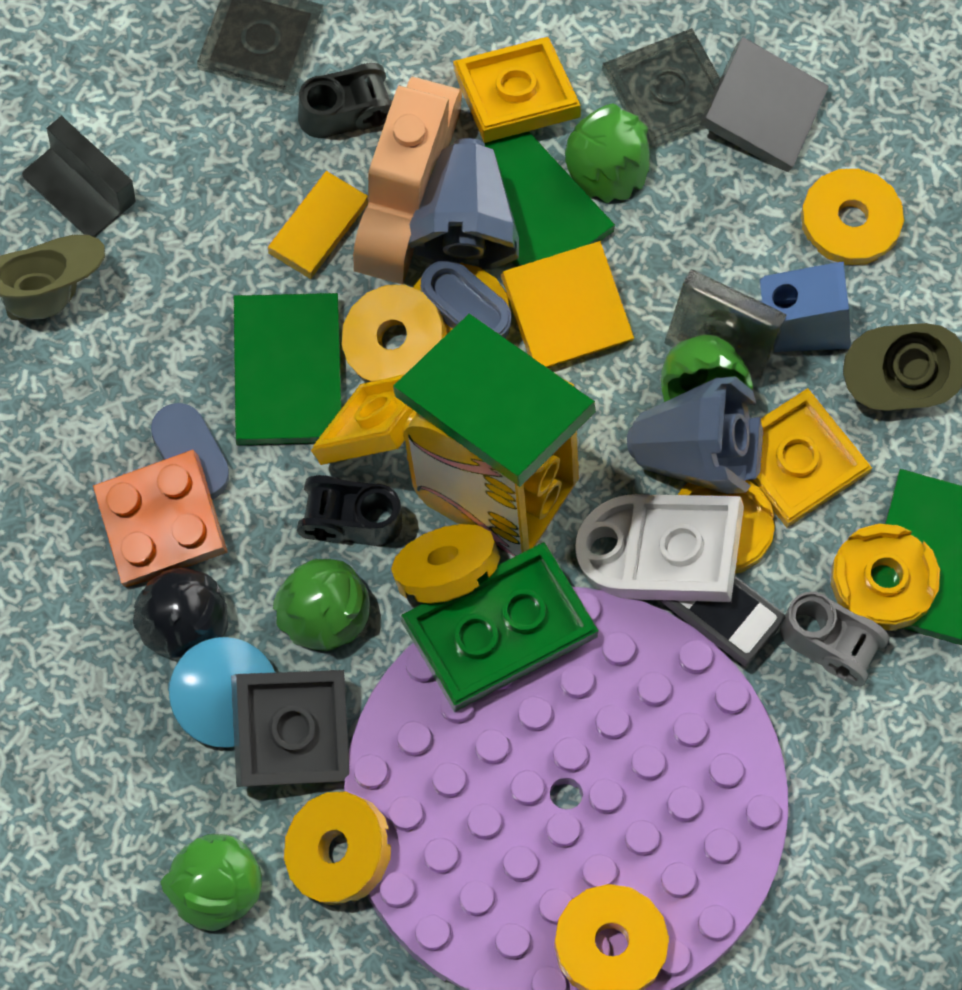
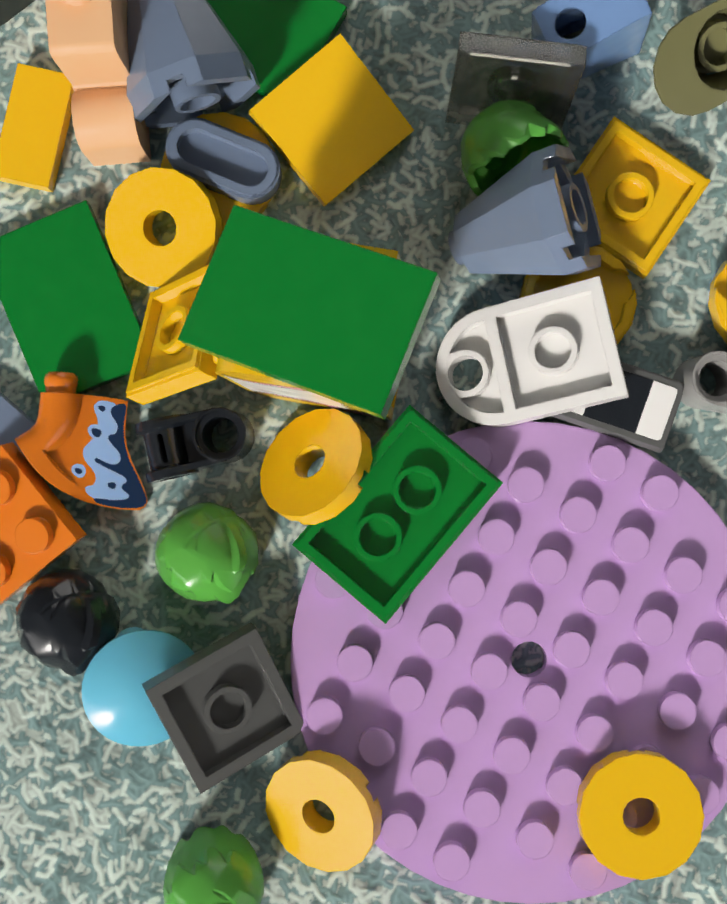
camera: 15 degrees left, 20 degrees up
(255, 481) = (83, 445): none -> orange arm

